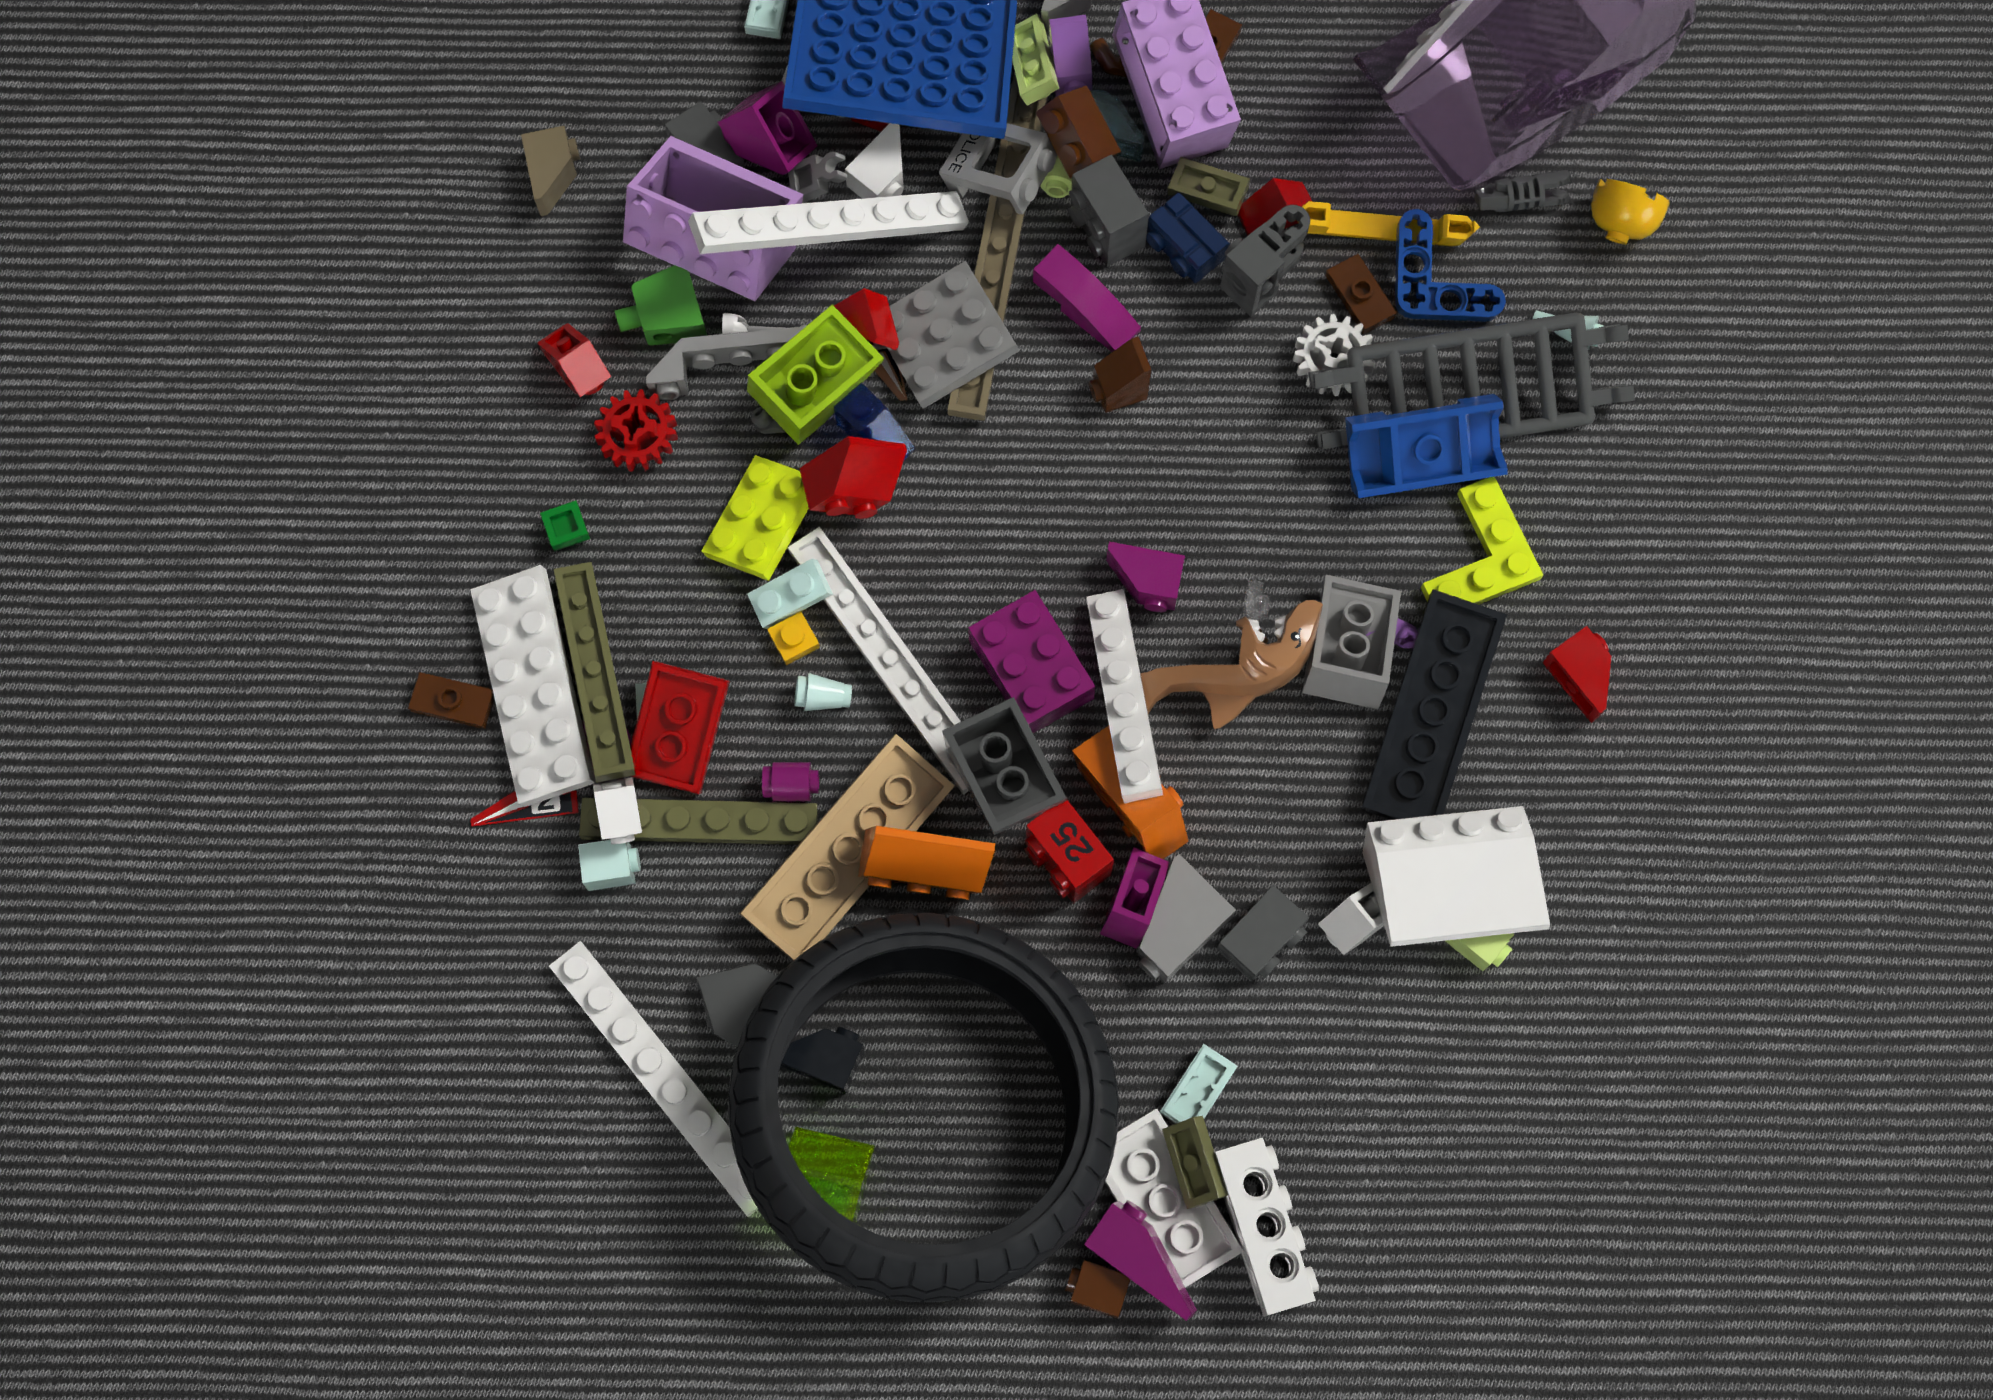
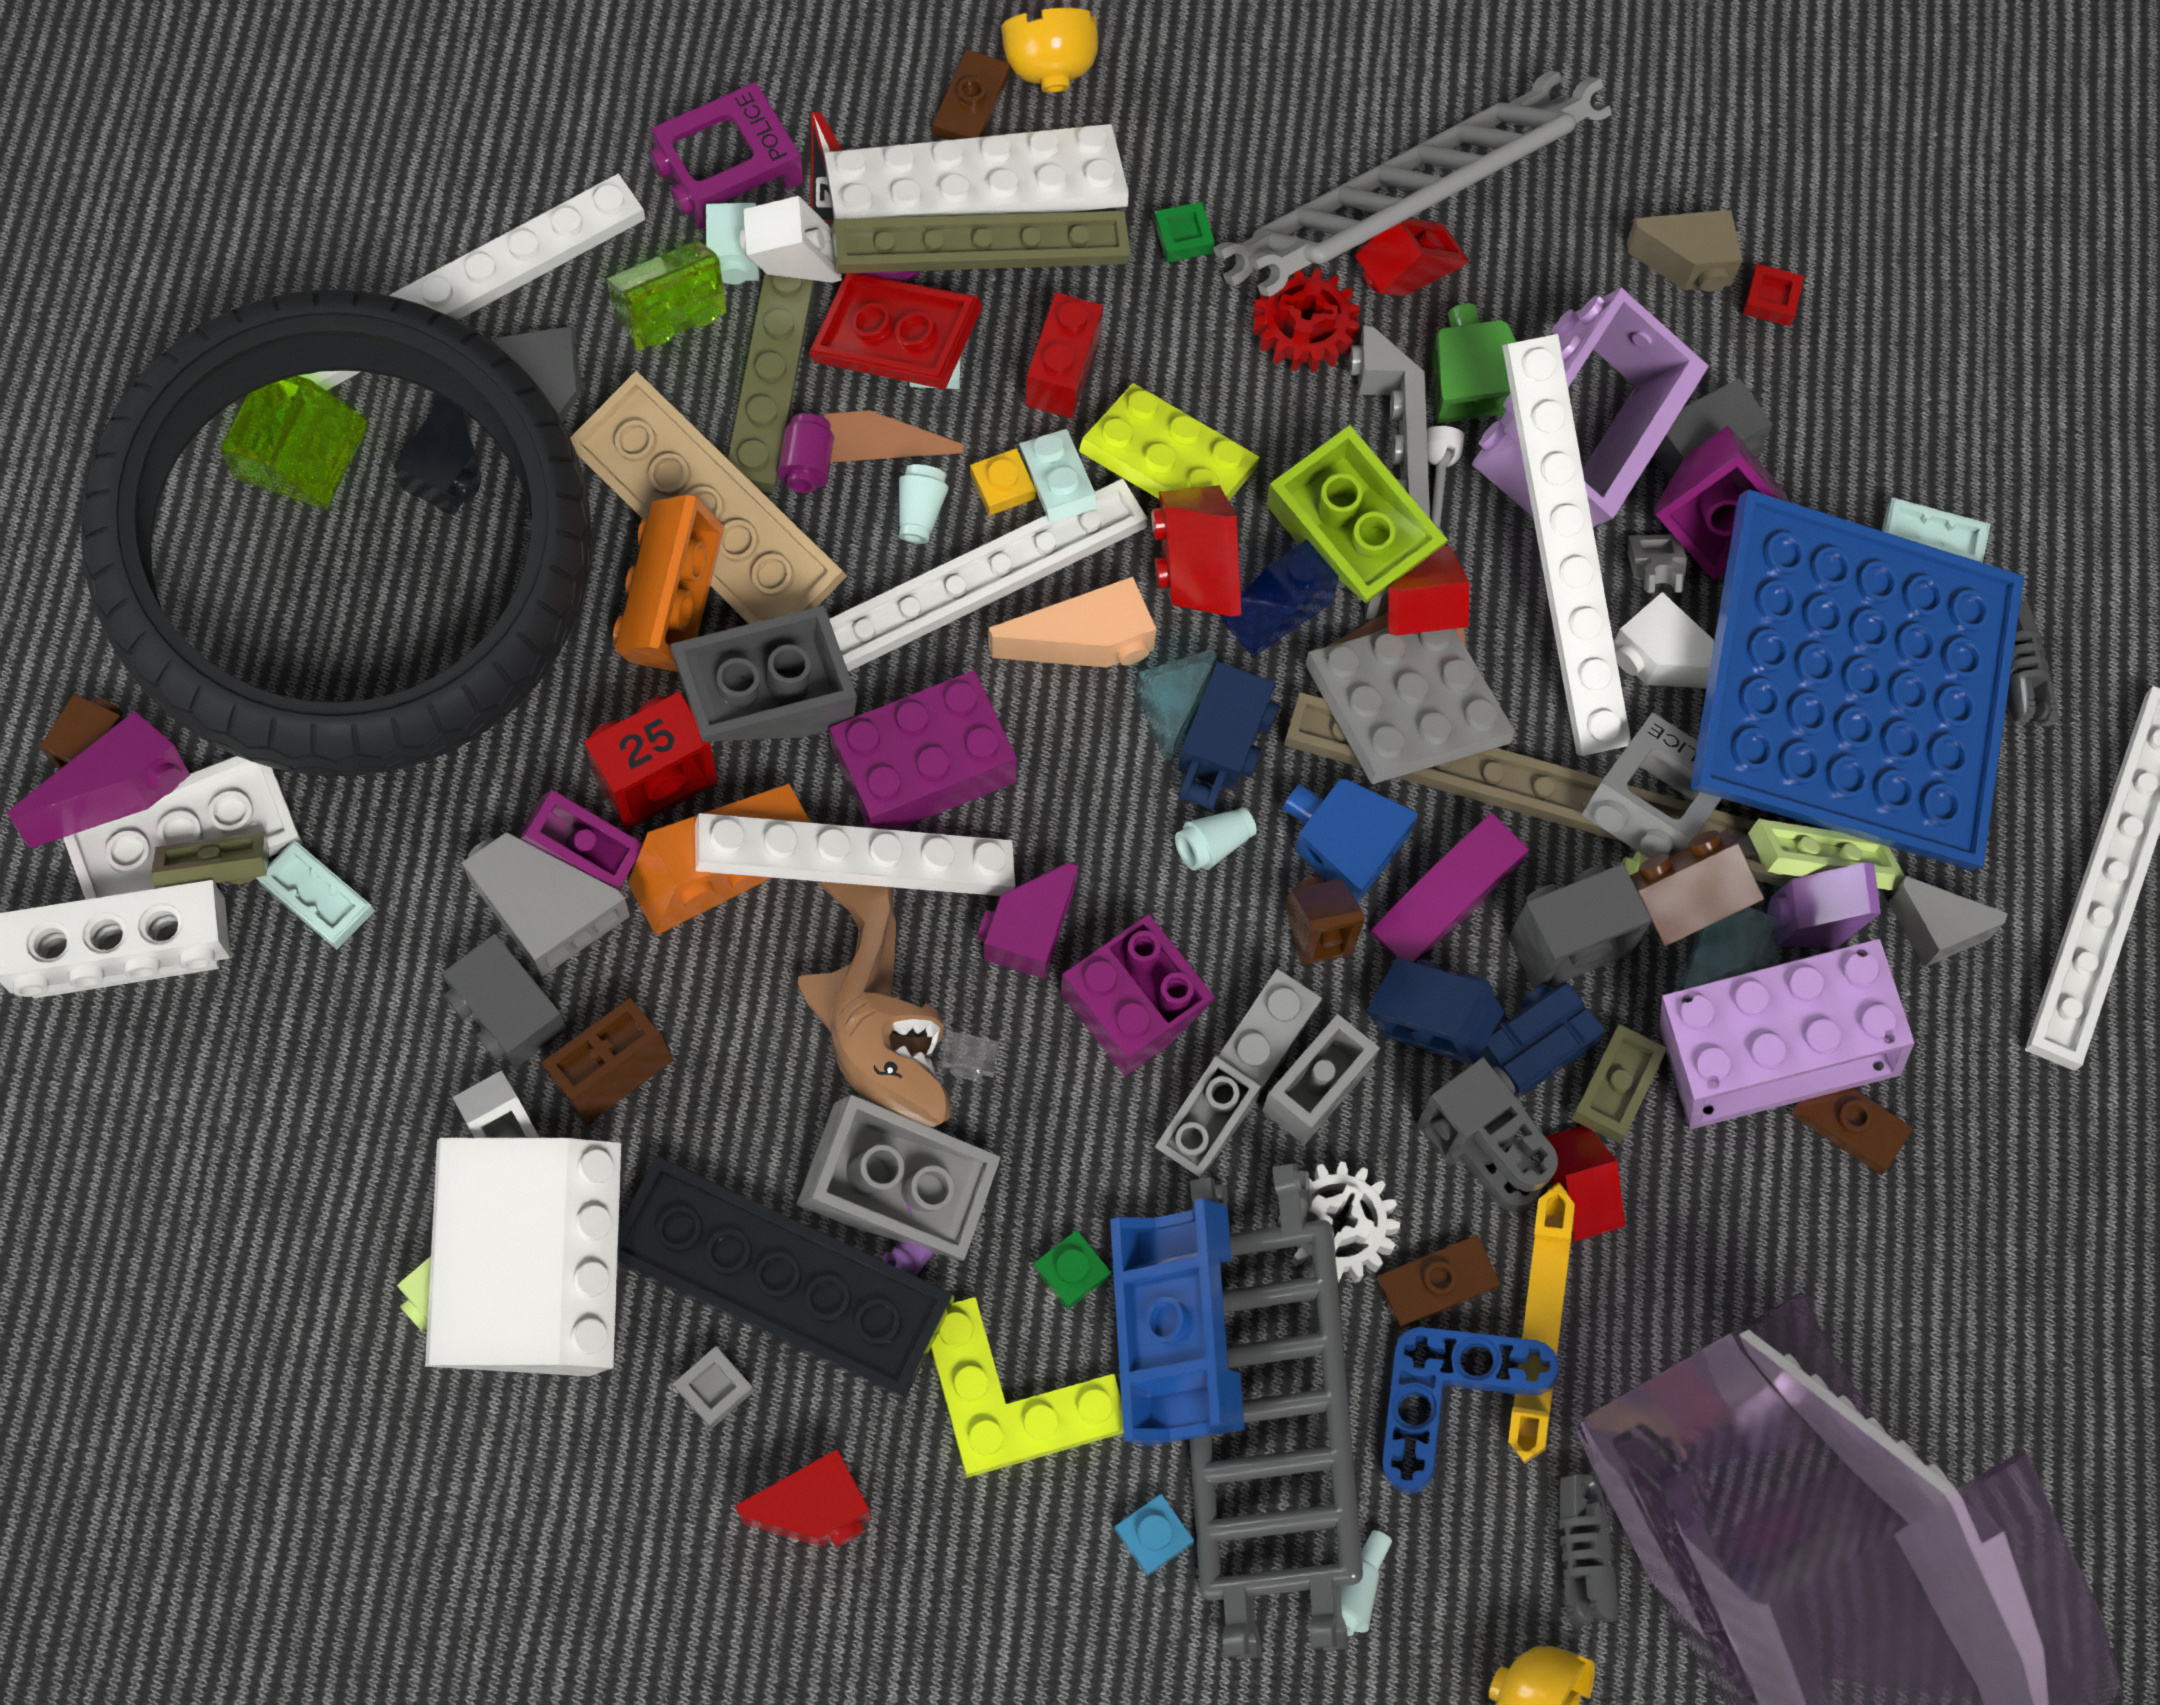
camera: 90 degrees right, 5 degrees down
(409, 637) = (1052, 47): none -> yellow cylinder
(506, 852) = (761, 129): none -> magenta window
(582, 110) = (1773, 295): none -> red plate
(598, 421) = (1533, 109): none -> light grey bar
(664, 912) = (668, 294): none -> clear neon green slope
(686, 600) = (1064, 355): none -> red brick
(762, 734) = (876, 436): none -> nougat sticker
(911, 551) = (1085, 630): none -> light nougat slope
(964, 495) = (1171, 696): none -> clear light blue slope
(986, 458) = (1225, 733): none -> dark blue brick
(1053, 368) = (1349, 833): none -> blue torso
(1065, 459) = (1214, 837): none -> light aqua cone
(1180, 298) = (1436, 1010): none -> dark blue brick
(1195, 497) = (1135, 994): none -> magenta slope
(1240, 370) = (1320, 1079): none -> light grey brick
(1241, 429) = (1239, 1074): none -> light grey slope
(1296, 852) = (608, 1061): none -> reddish brown hinge
(1391, 525) = (1072, 1270): none -> green plate
(1514, 746) = (713, 1387): none -> light grey plate
(1558, 455) = (1153, 1535): none -> dark azure plate

